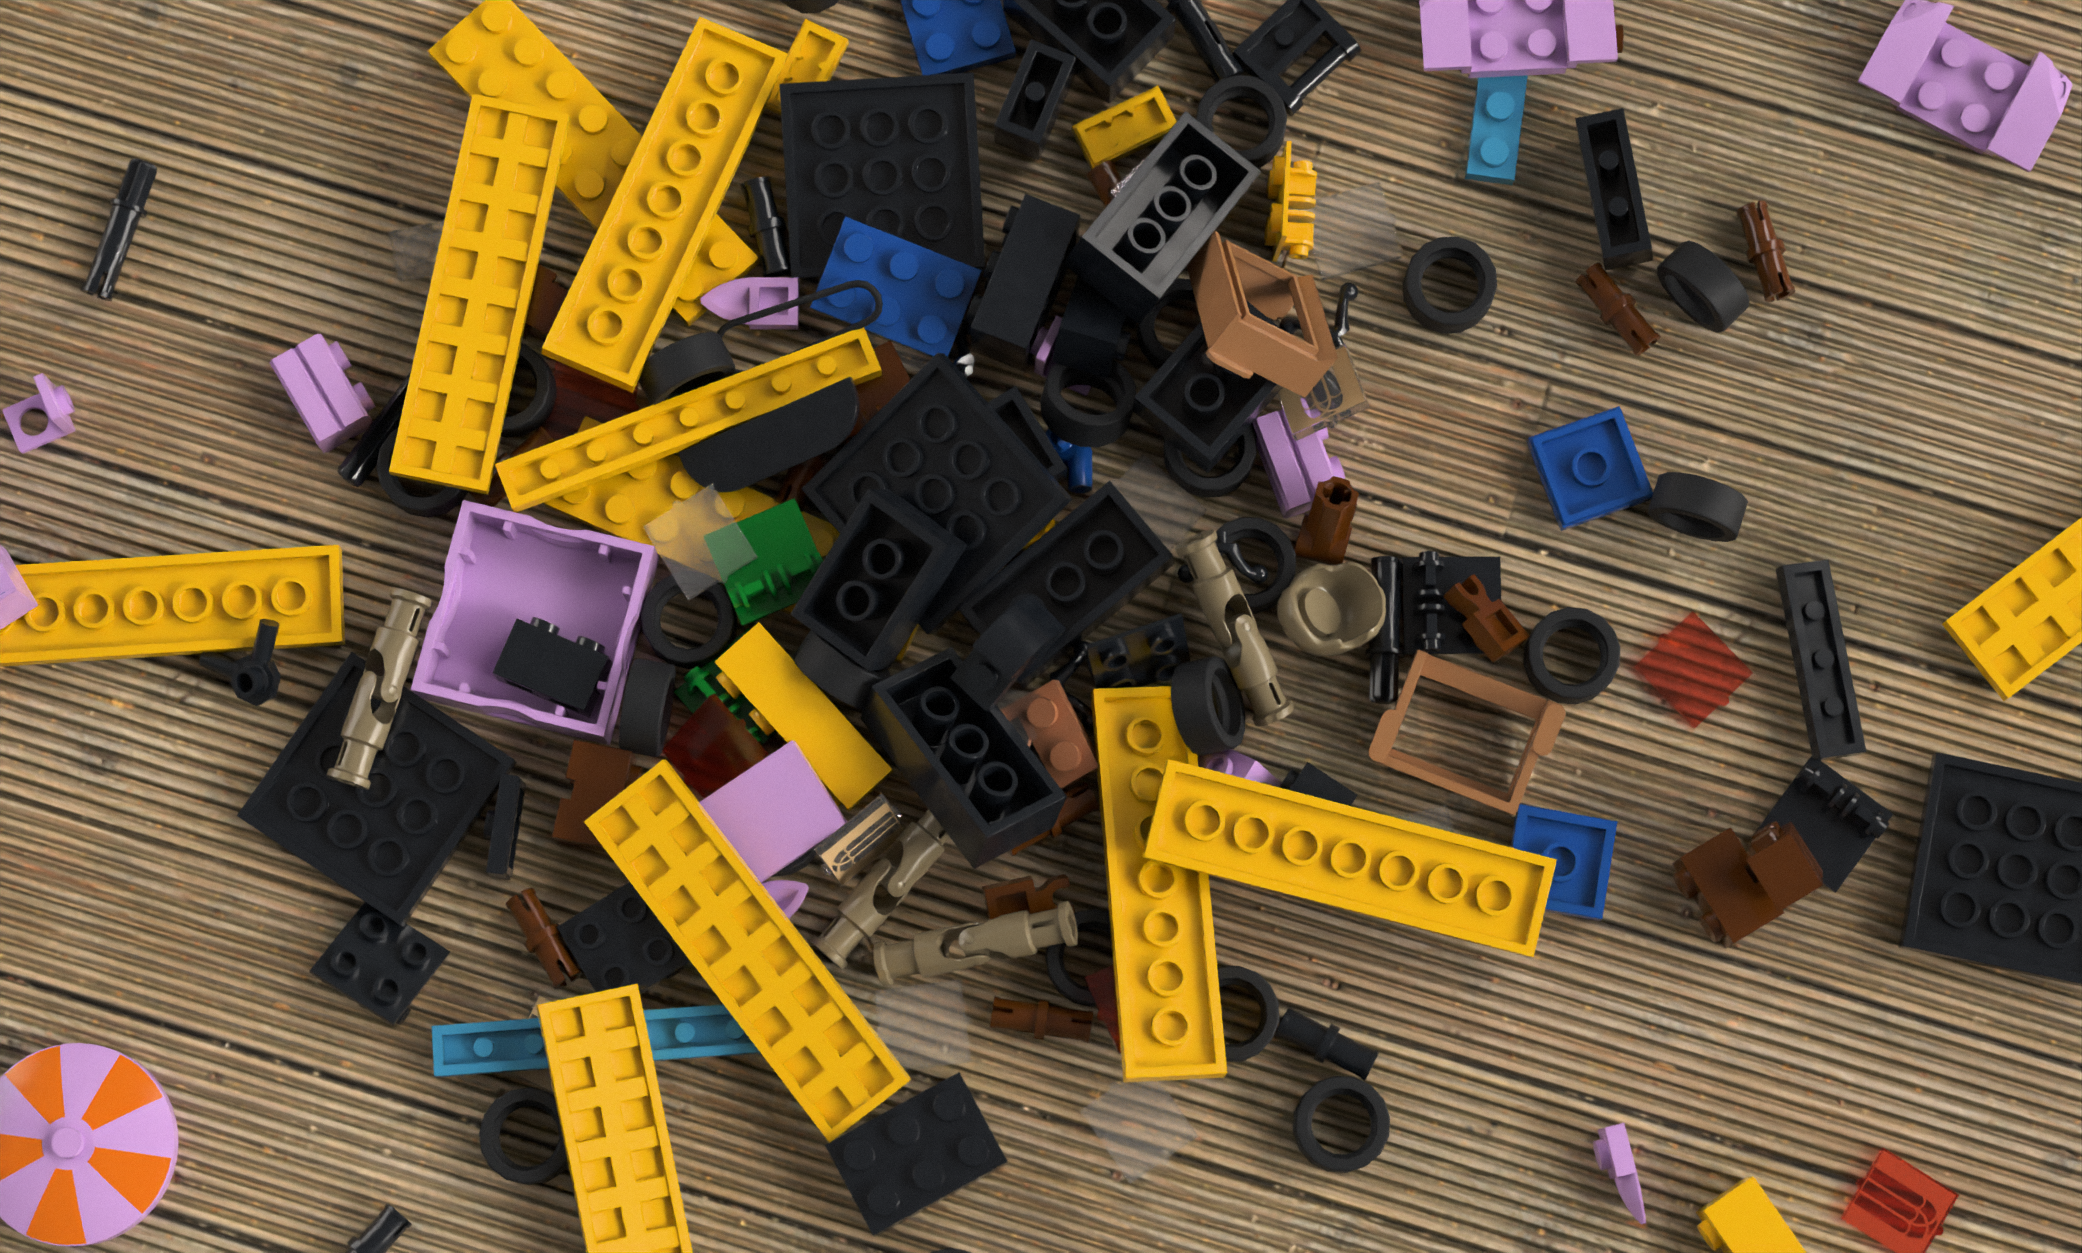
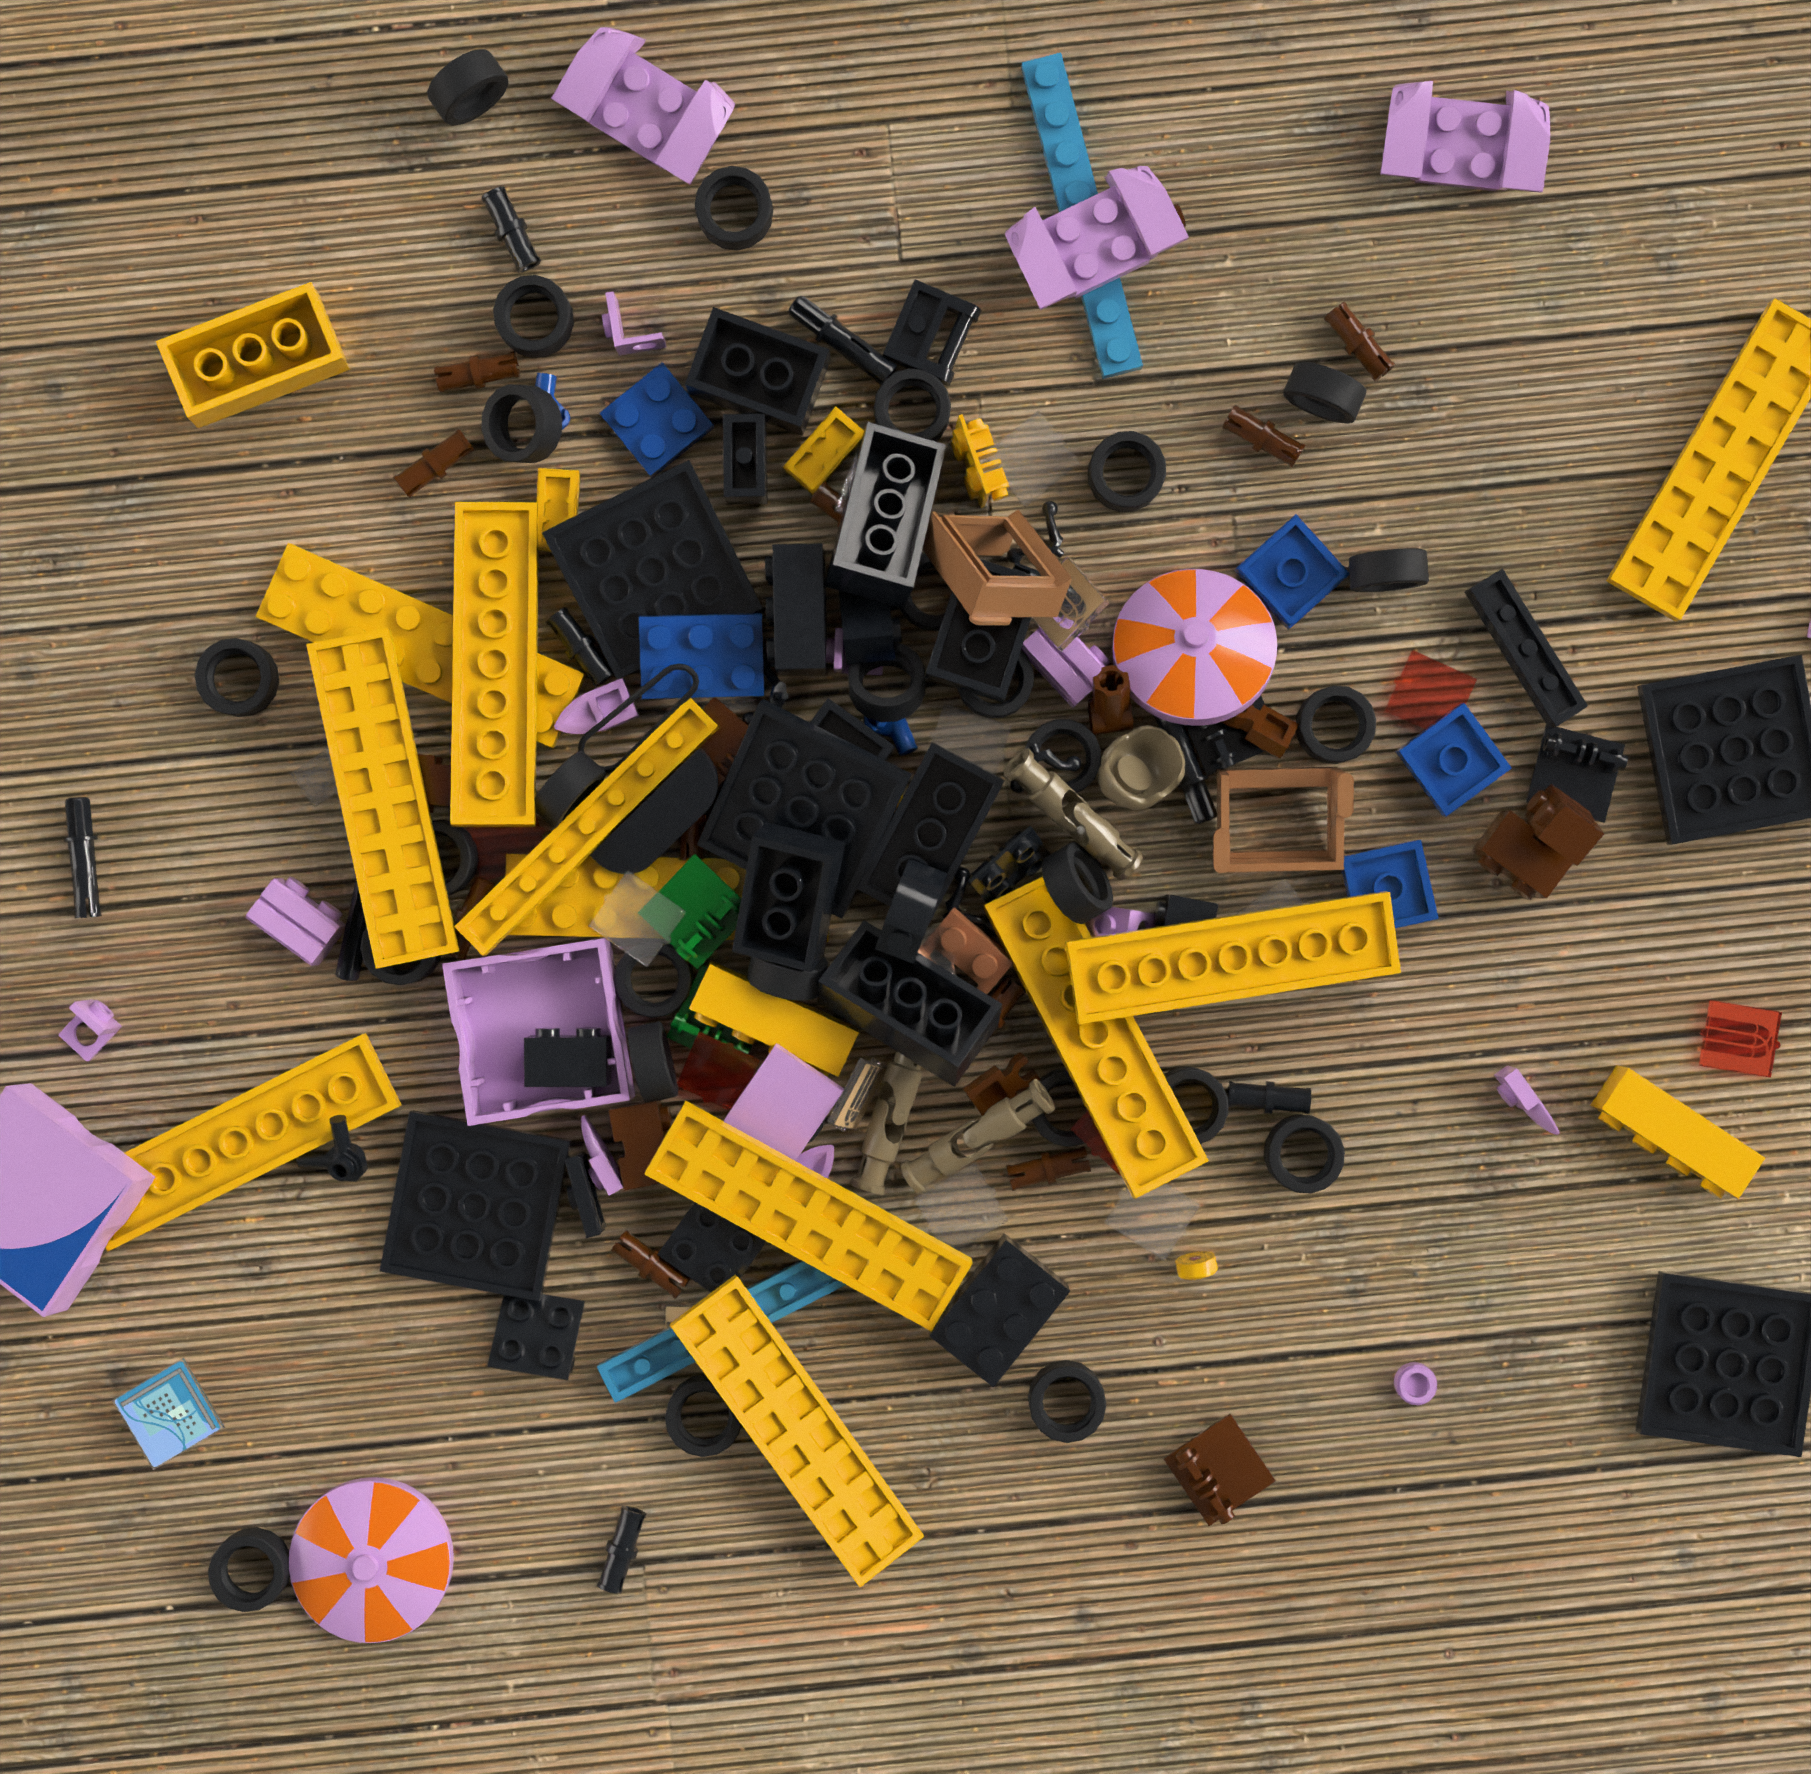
camera: 20 degrees left, 10 degrees up
(362, 74) = (205, 677): none -> black tyre
(383, 680) = (443, 1125): dark tan piece -> none
(539, 808) = (604, 1169): none -> lavender plate
(1164, 1201) = (1196, 1265): none -> yellow tile
(1447, 502) = (1195, 646): none -> dish
(1614, 189) = (1224, 342): black brick -> none
(1690, 749) = (1453, 759): none -> blue plate

